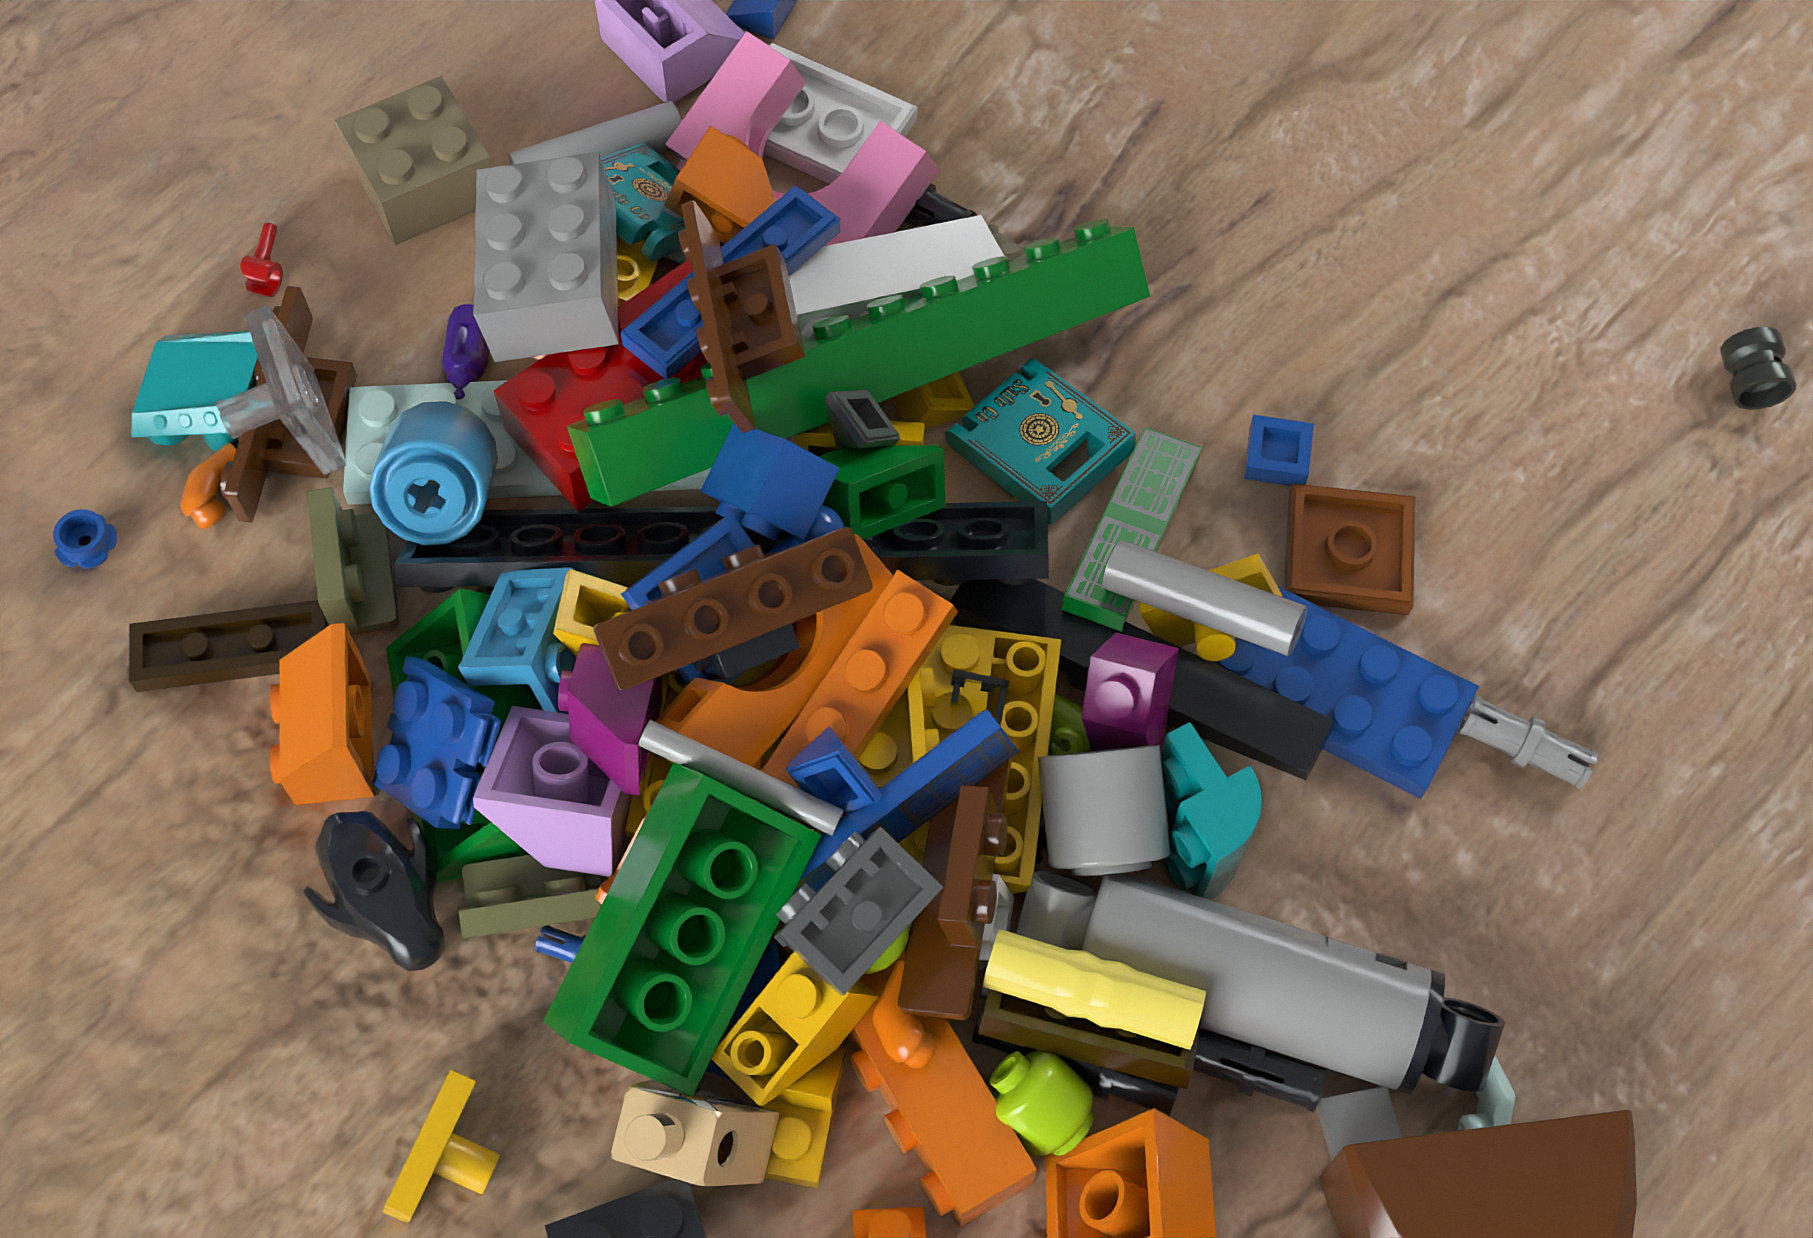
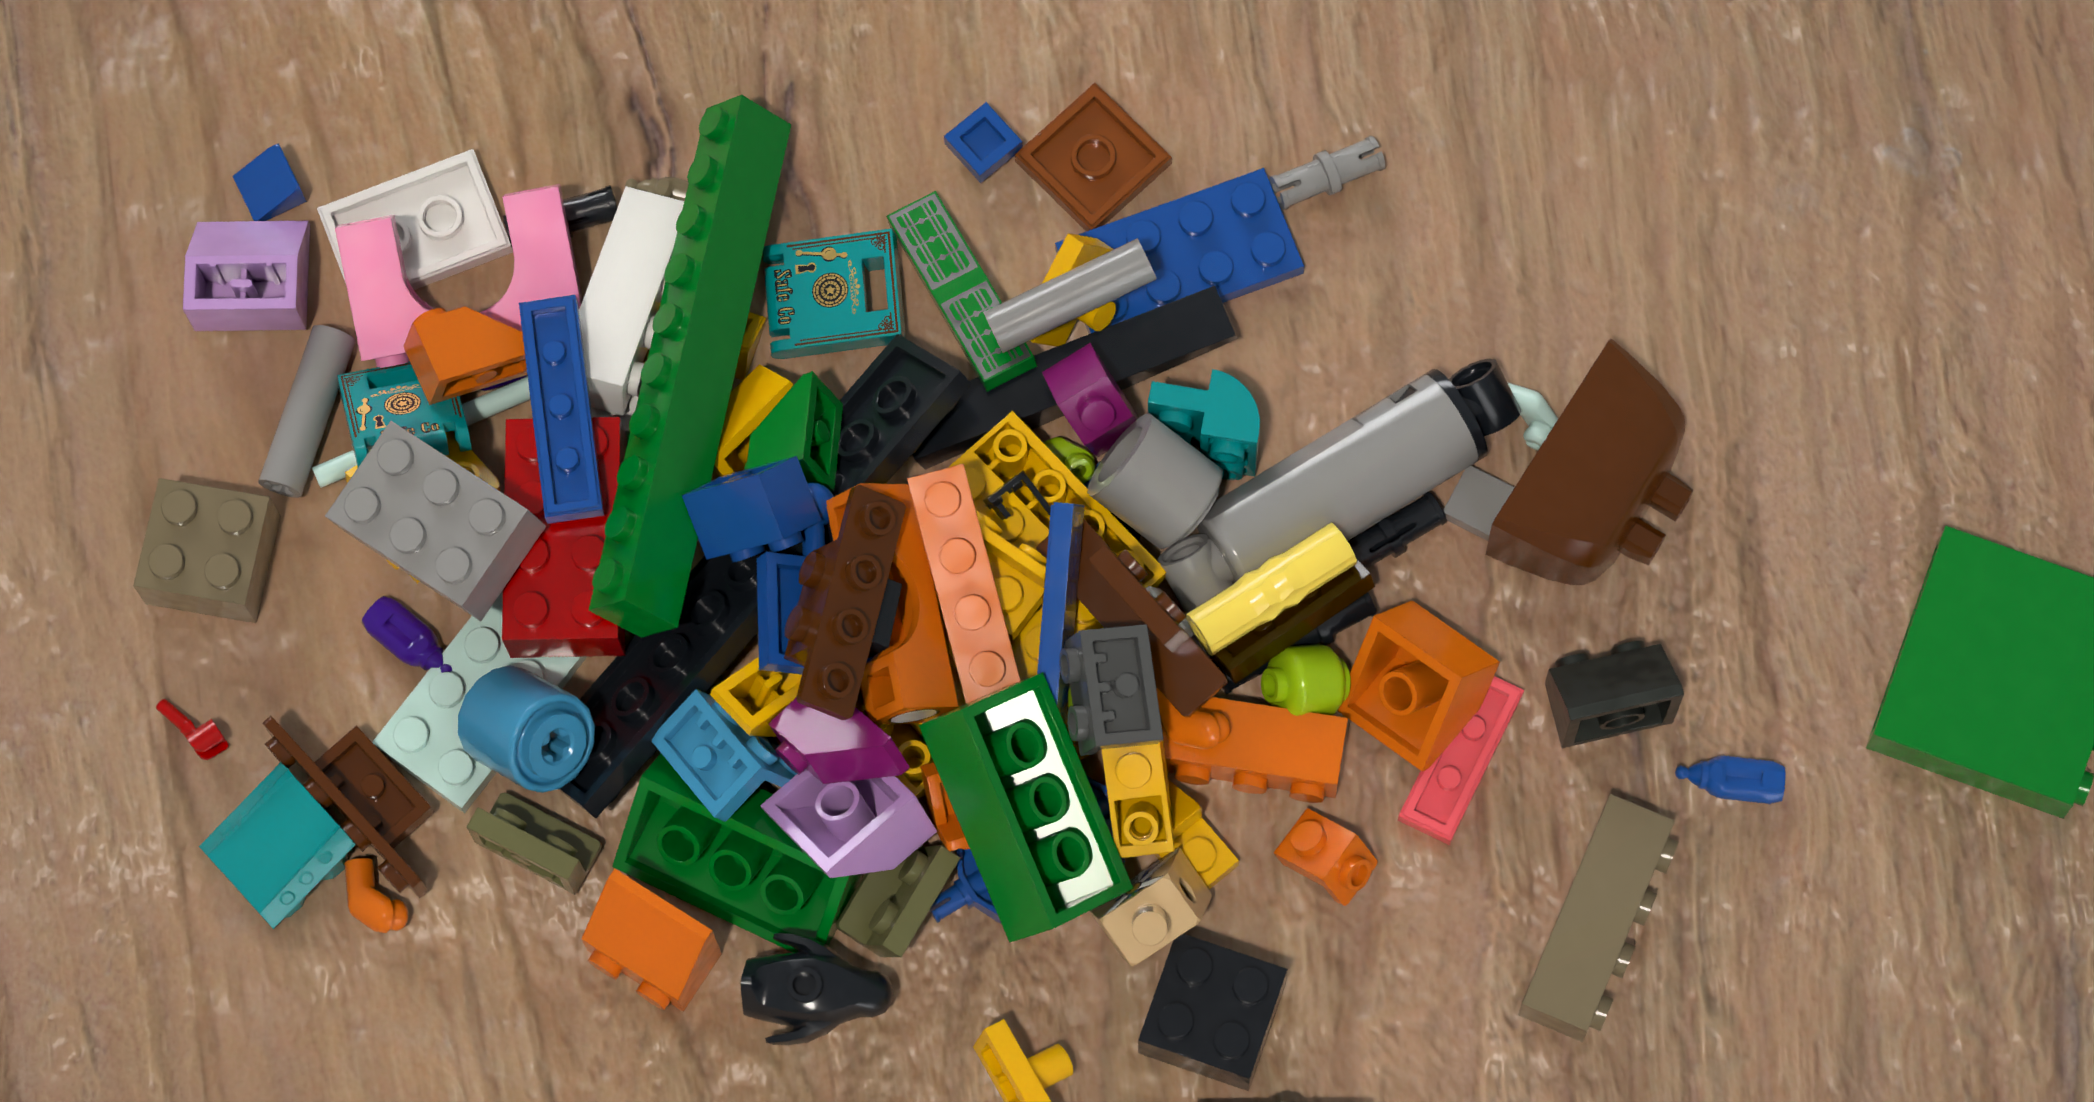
camera: 45 degrees left, 10 degrees up
(76, 528) = (341, 1002): blue plate -> none
(219, 645) = (524, 970): dark brown plate -> none
(289, 394) = (374, 787): clear tile -> none
(436, 744) = (744, 876): blue plate -> none
(741, 777) = (965, 691): light grey bar -> none
(744, 315) = (618, 419): reddish brown bracket -> none
(833, 774) = (1011, 633): blue slope -> none
(859, 420) = (747, 411): dark grey slope -> none

